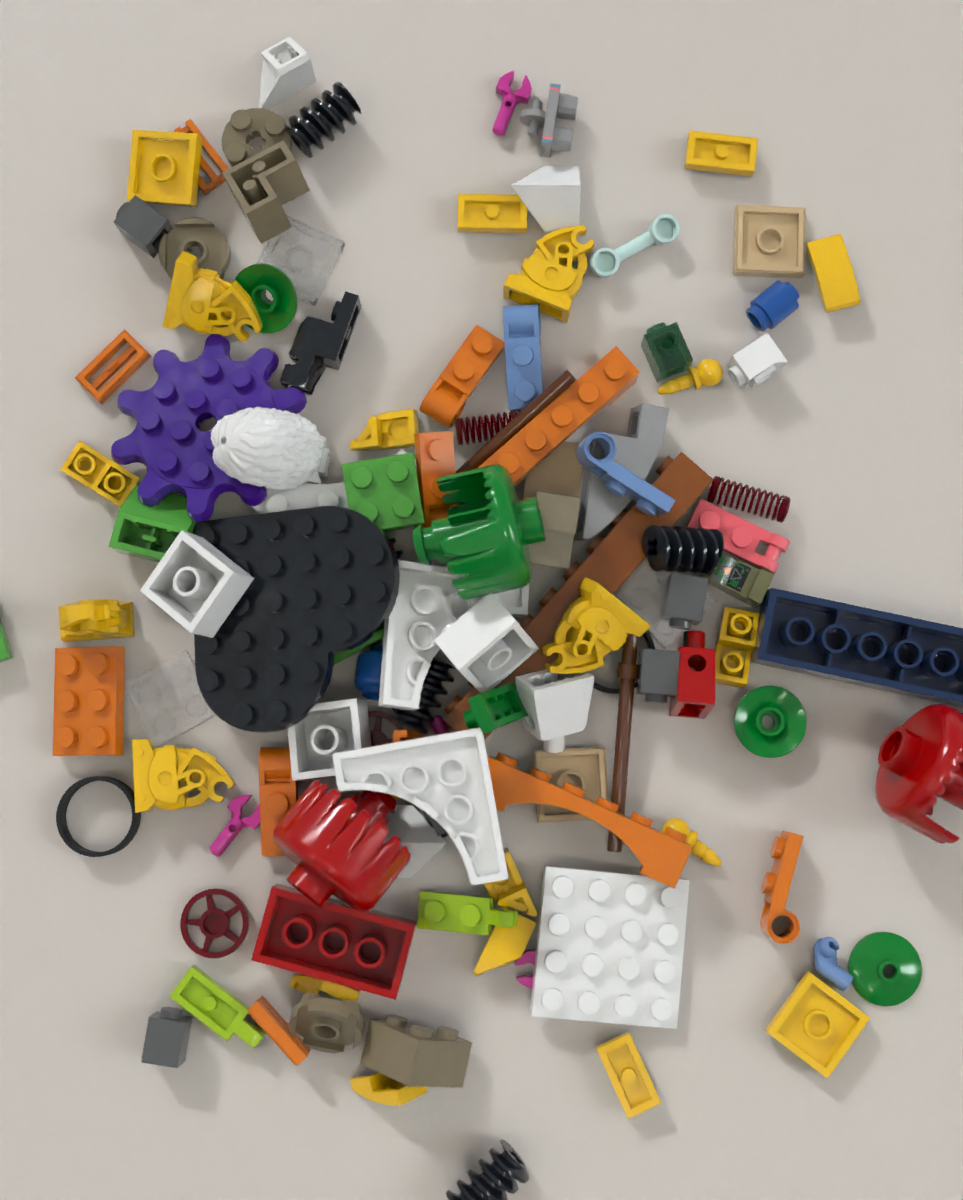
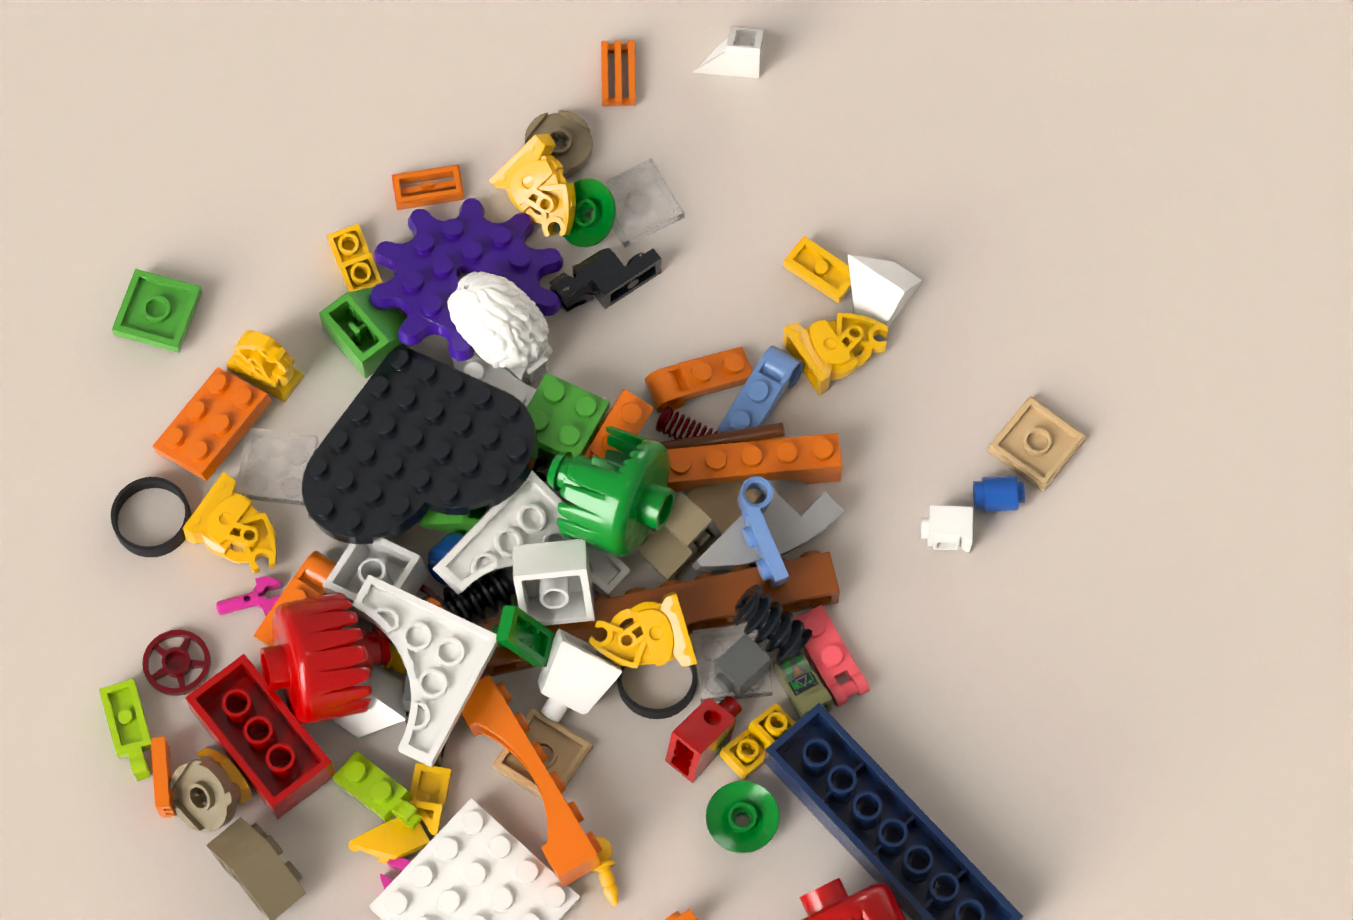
camera: 35 degrees right, 15 degrees down
(142, 225) = (533, 94): dark grey brick -> none
(164, 167) = (583, 63): yellow plate -> none
(167, 1038) = (72, 720): dark grey brick -> none
(196, 584) = (364, 383): white brick -> none
(248, 125) = (667, 75): dark tan plate -> none
(265, 185) = (650, 127): dark tan brick -> none
(322, 118) = (737, 109): black piece -> none
(385, 1089) = (213, 881): yellow slope -> none
(388, 431) = (605, 379): yellow slope -> none
(509, 100) = (903, 194): dark pink bar -> none
(558, 106) = (920, 225): light grey hips -> none
(627, 672) = (654, 693): reddish brown bar -> none
(658, 674) = (673, 706): dark grey brick -> none
(660, 232) = (951, 375): light aqua bar -> none
(666, 350) = (880, 469): clear green brick -> none
(707, 373) = (902, 510): yellow bar -> none
(721, 153) = (1047, 347): yellow plate -> none
(783, 509) = (886, 656): dark red piece -> none
(833, 273) = (1069, 502): yellow slope -> none

